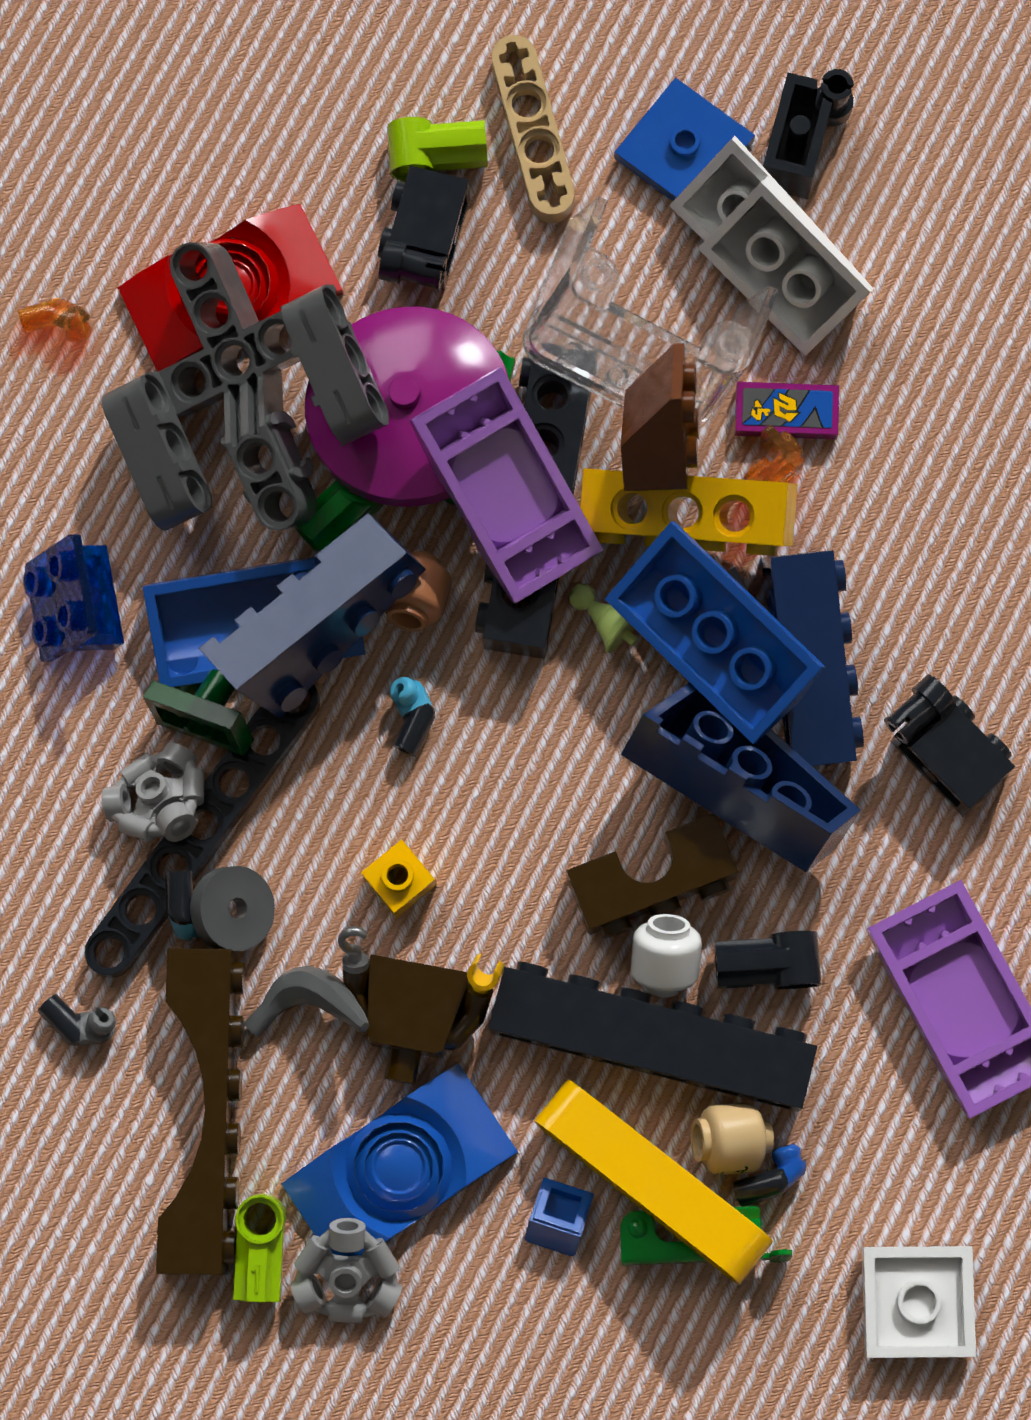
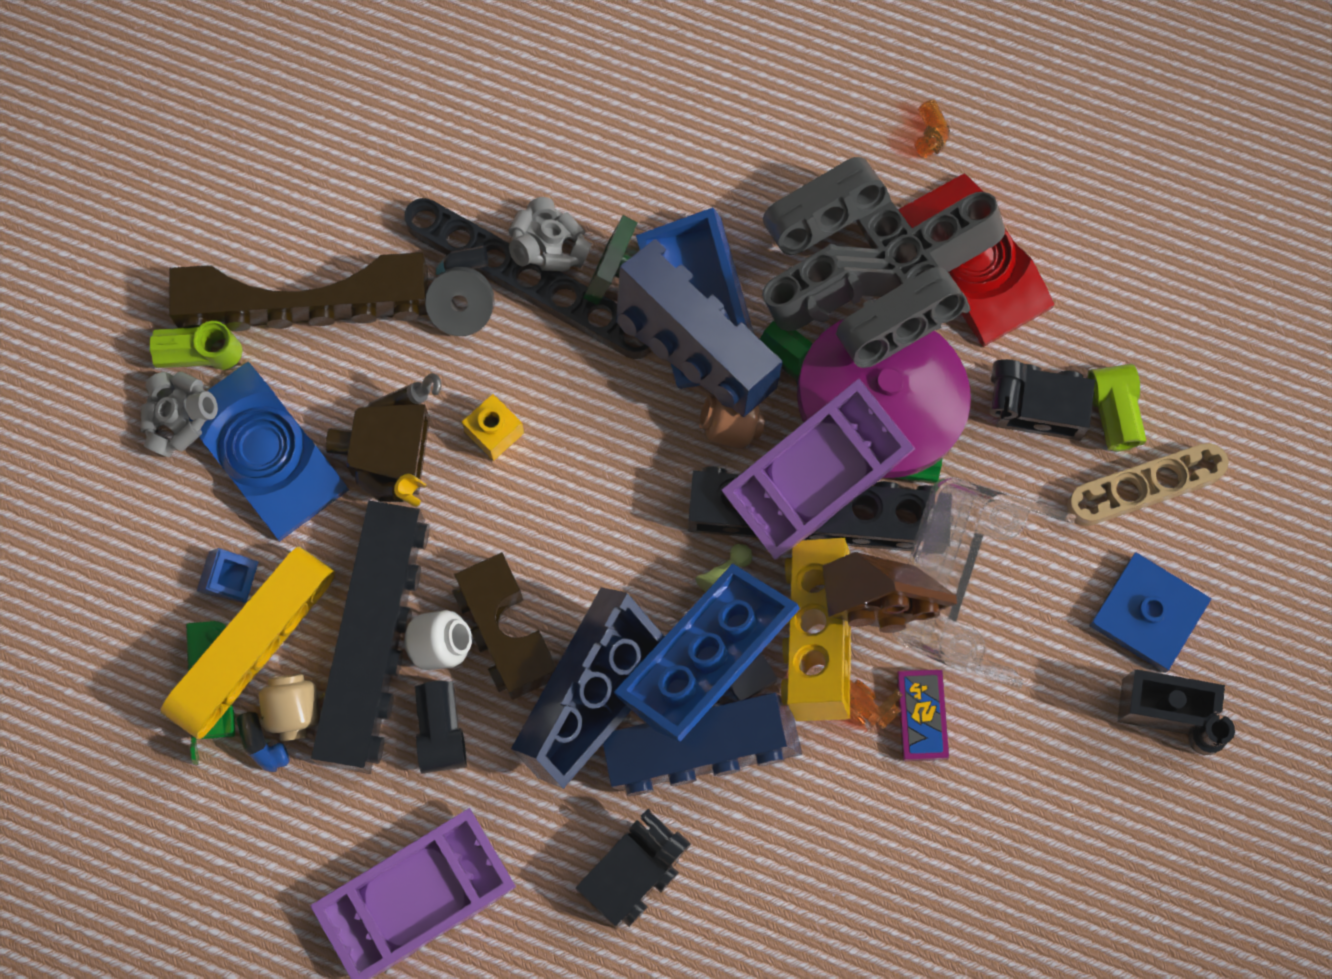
camera: 80 degrees right, 5 degrees down
(72, 599) = (701, 164): clear blue bracket -> none
(78, 1028) = (364, 201): arm -> none
(311, 987) = (400, 365): dark grey piece -> none
(416, 713) = (630, 432): arm -> none
(767, 240) = (1062, 684): white slope -> none
(918, 1302) = (158, 872): white plate -> none

